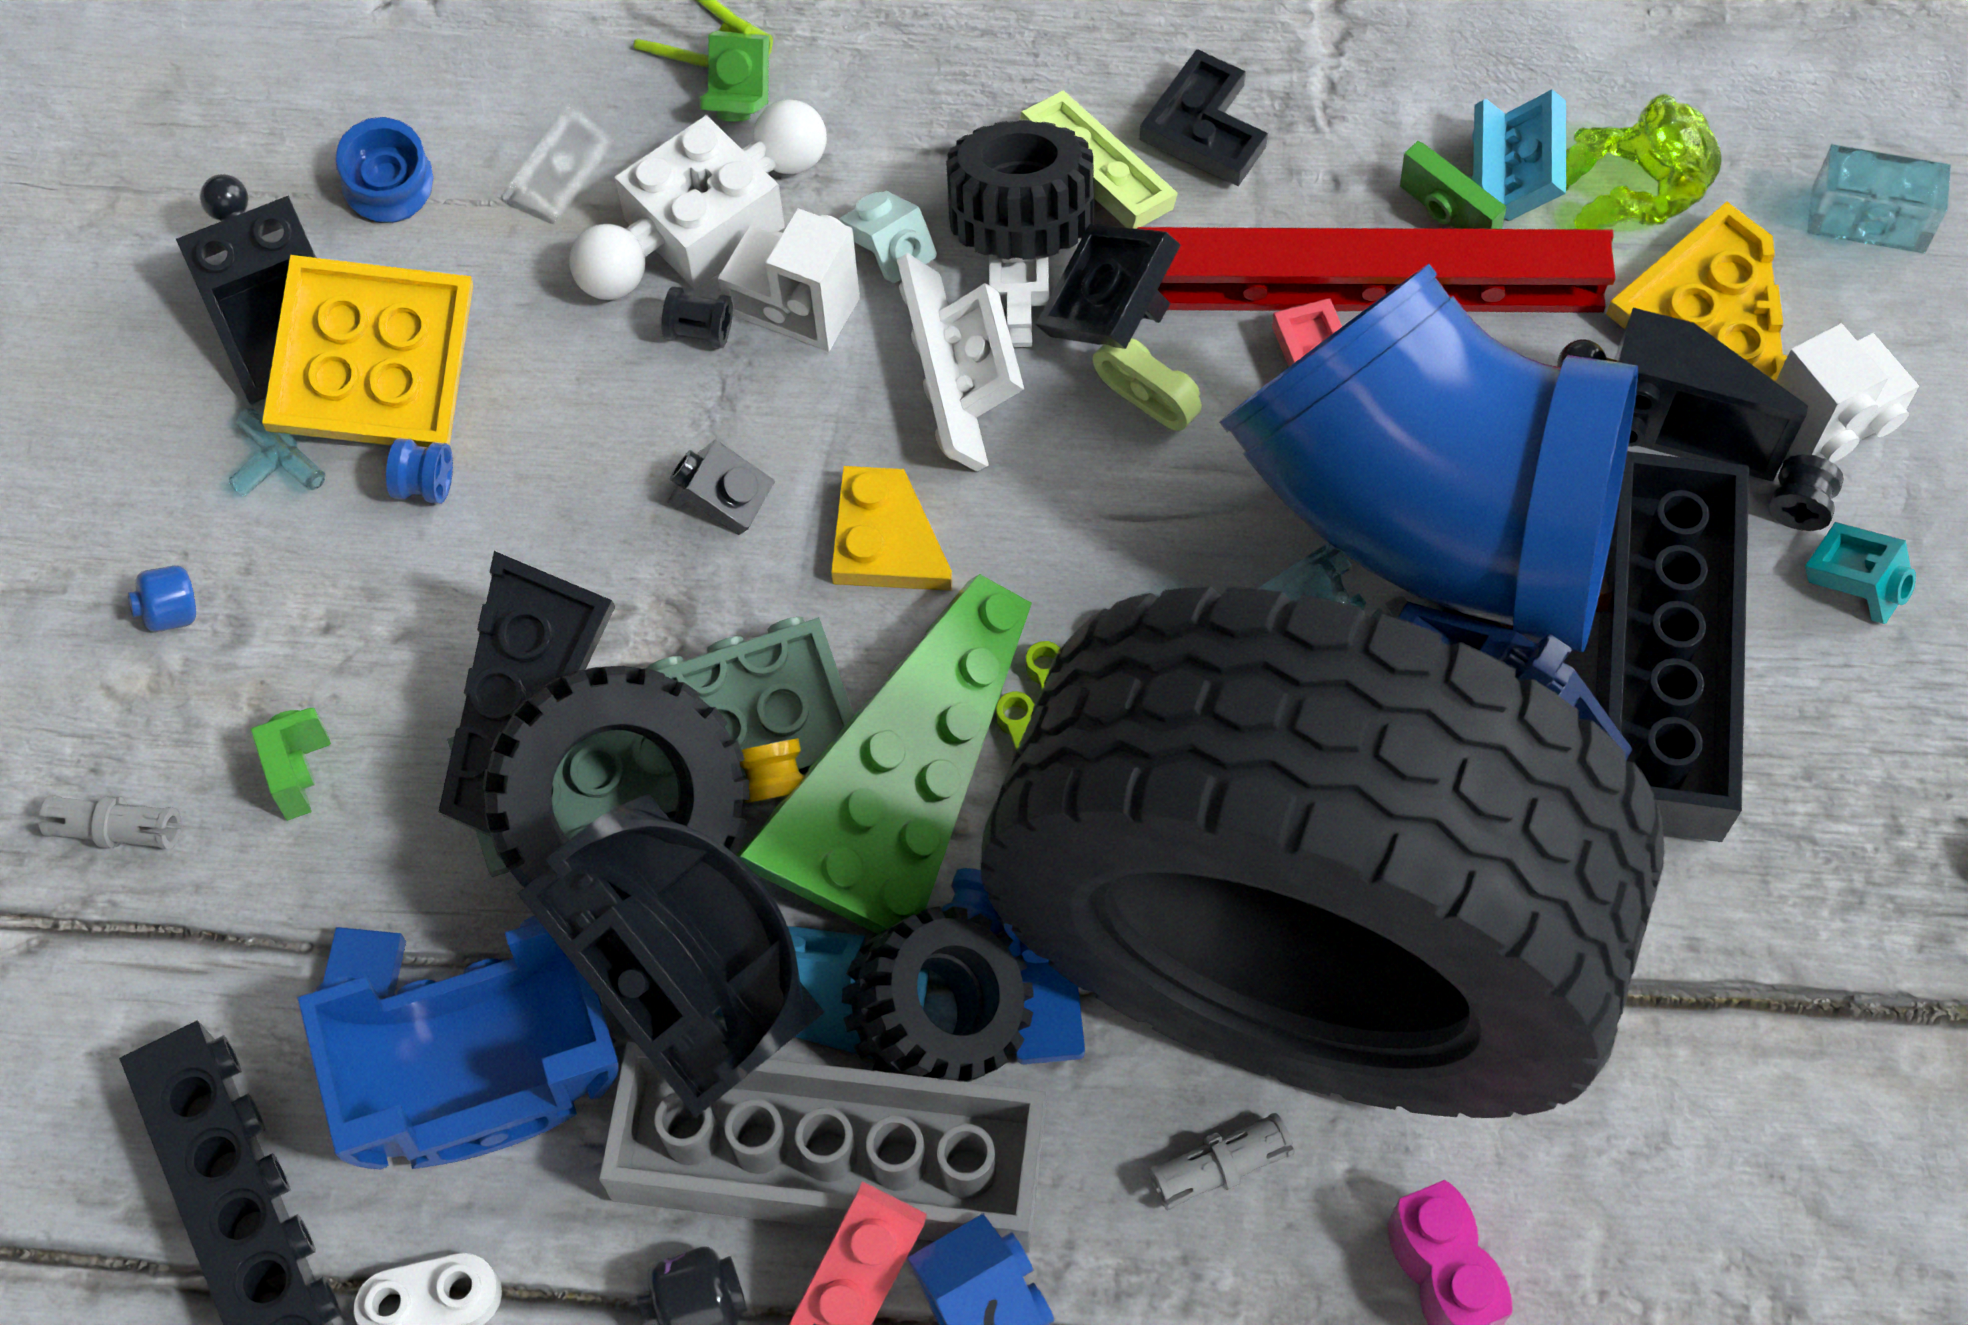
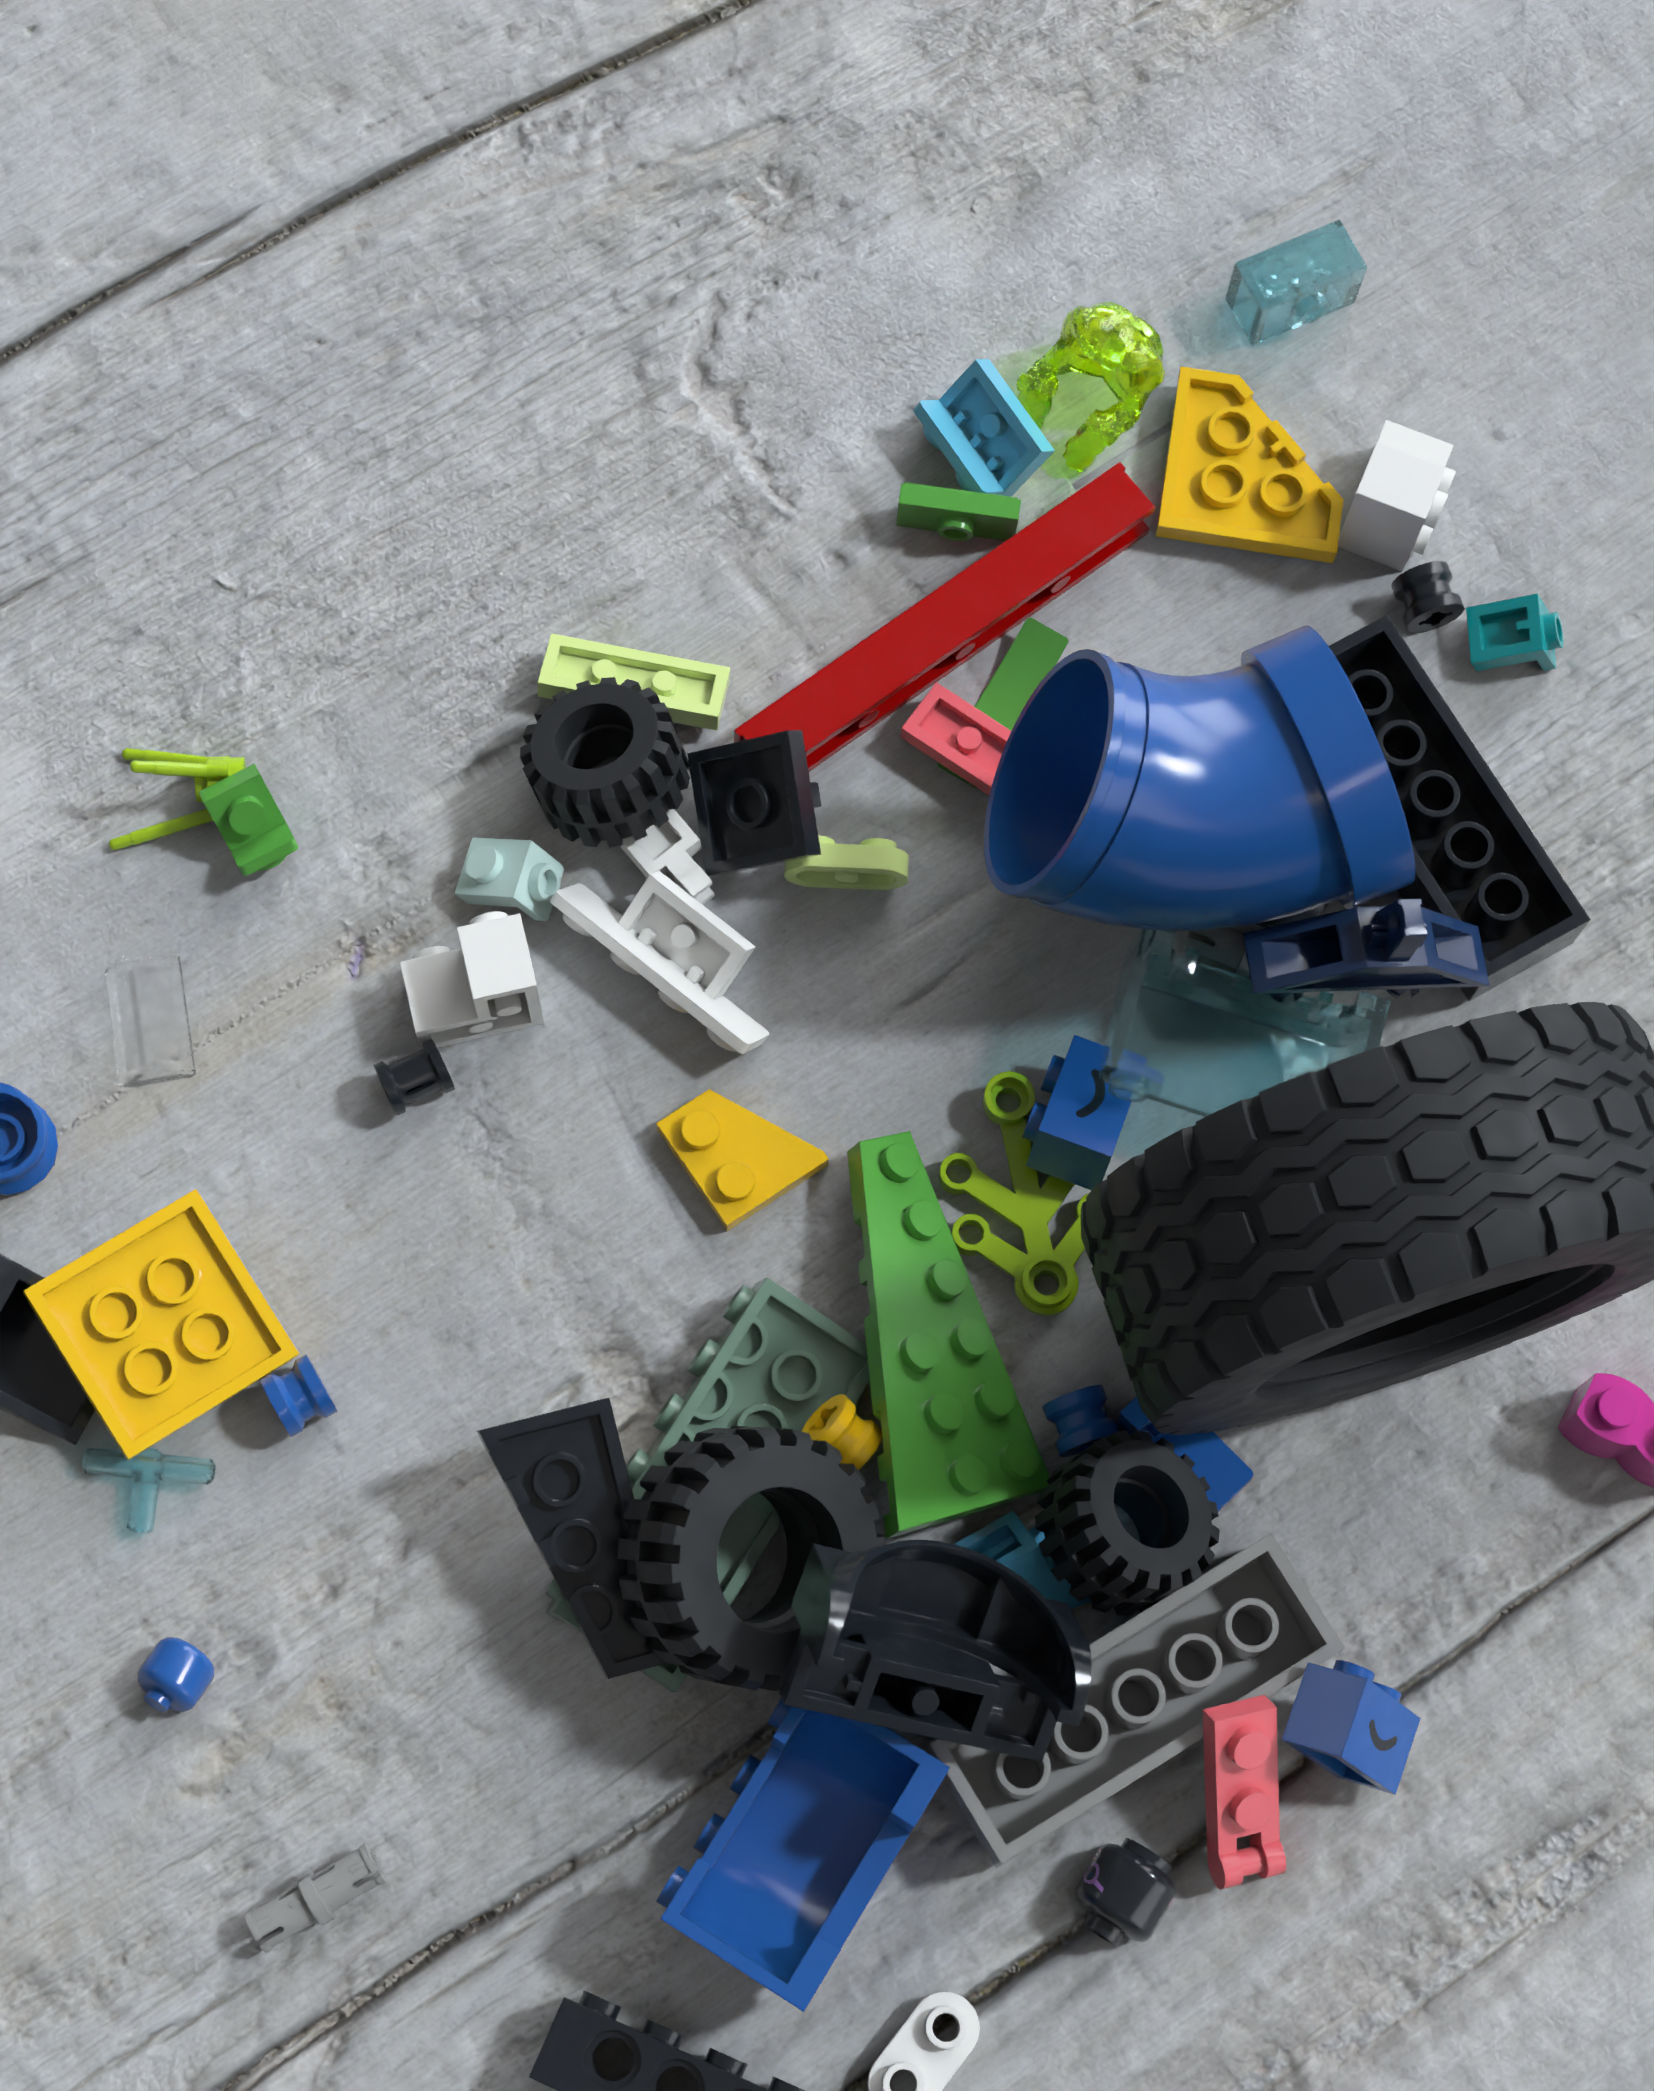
camera: 45 degrees left, 10 degrees up
(282, 753) = (429, 1739): bright green bracket -> none
(367, 954) = (635, 1844): blue tile -> none
(697, 200) = (348, 997): white brick -> none
(720, 485) = (567, 1218): bracket -> none
(1193, 122) = (692, 593): black plate -> none
(1221, 1161) = (1414, 1478): light grey pin -> none
(1701, 396) = (1283, 579): black slope -> none

